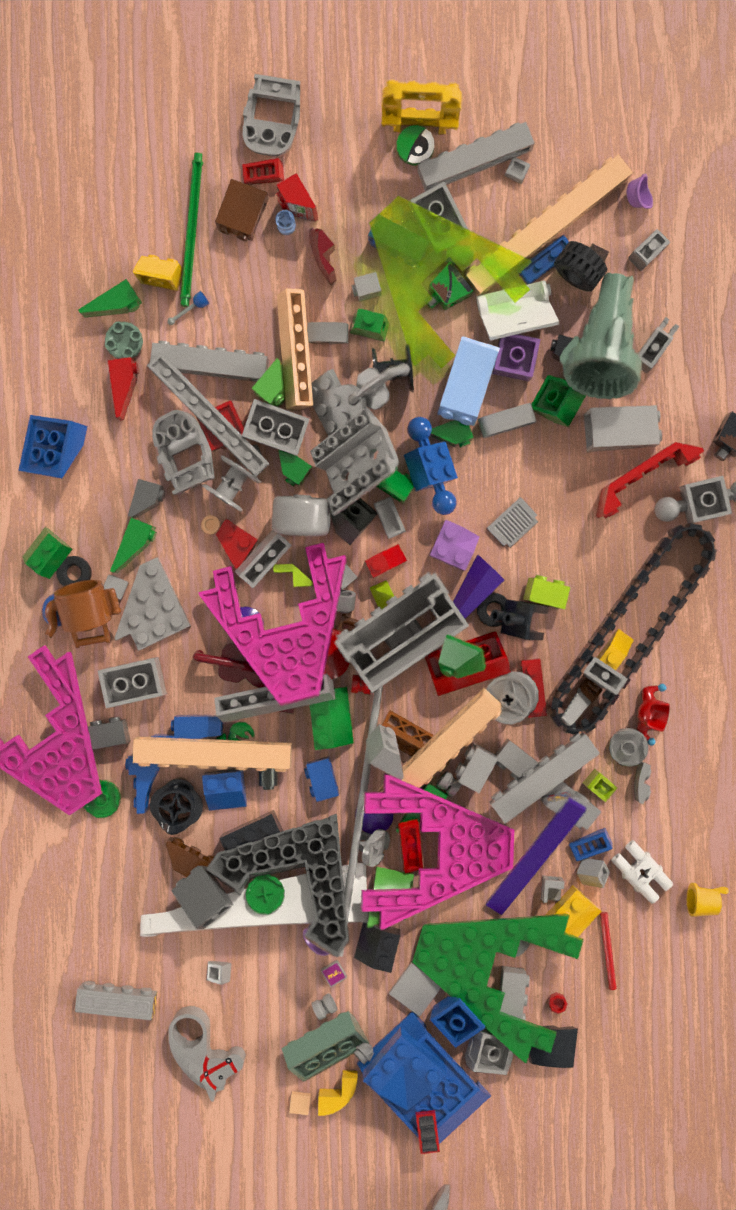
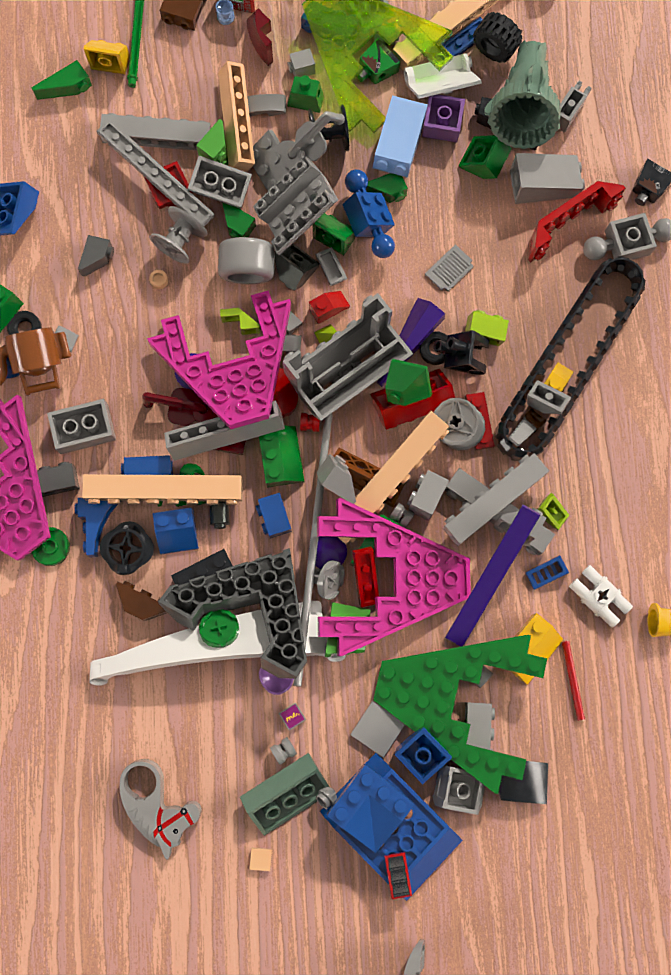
camera: 10 degrees left, 10 degrees down
(116, 1001) = (64, 755): light grey brick -> none
(123, 340) = (74, 116): sand green dish -> none
(123, 381) = (74, 152): red slope -> none
(135, 540) = (84, 295): green slope -> none
(152, 608) = (101, 359): light grey wing -> none
(174, 434) = (121, 196): light grey slope -> none
(199, 301) = (145, 80): hinge -> none
(201, 897) = (154, 632): dark grey brick -> none
(218, 972) = (172, 721): light grey slope -> none
(235, 542) = (183, 294): red wing -> none
(263, 558) = (210, 305): light grey brick -> none
(335, 1099) = (296, 852): yellow brick -> none
(377, 947) = (336, 683): black slope -> none
(454, 545) = (395, 287): medium lavender slope -> none
(507, 420) = (438, 175): light grey beam -> none
(551, 888) = (511, 617): light grey panel -> none
(557, 1003) = (525, 736): red tile -> none
(593, 872) = (551, 599): light grey panel -> none
(628, 747) = (577, 473): light grey tile -> none
(641, 789) = (592, 511): light grey slope -> none
(649, 249) = (558, 28): light grey slope -> none
(652, 713) = (597, 439): red piece -> none

